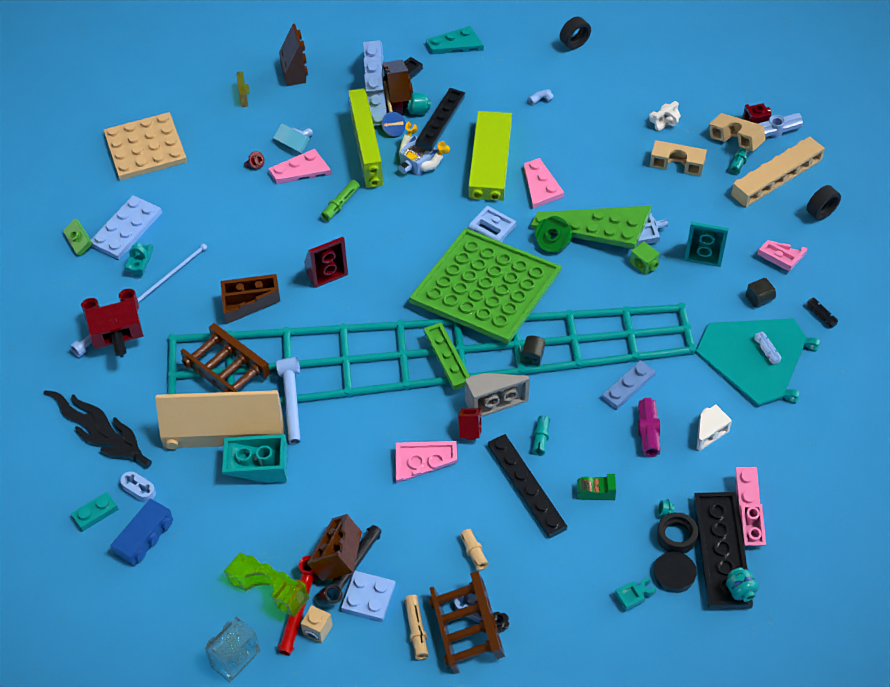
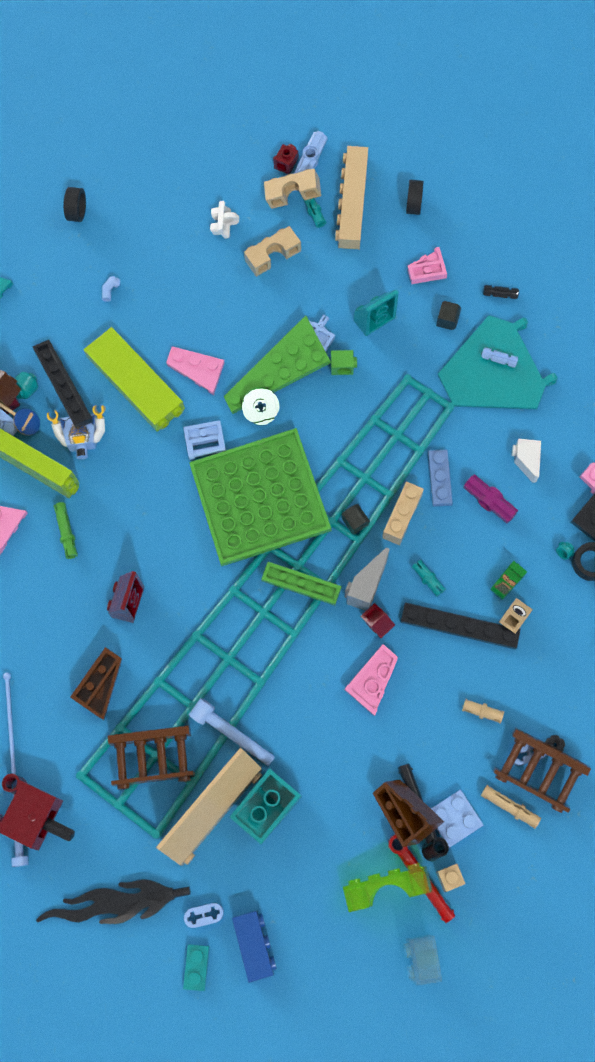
camera: 45 degrees left, 20 degrees up
(559, 380) = (402, 513): none -> tan arch
(573, 510) = (515, 615): none -> tan brick

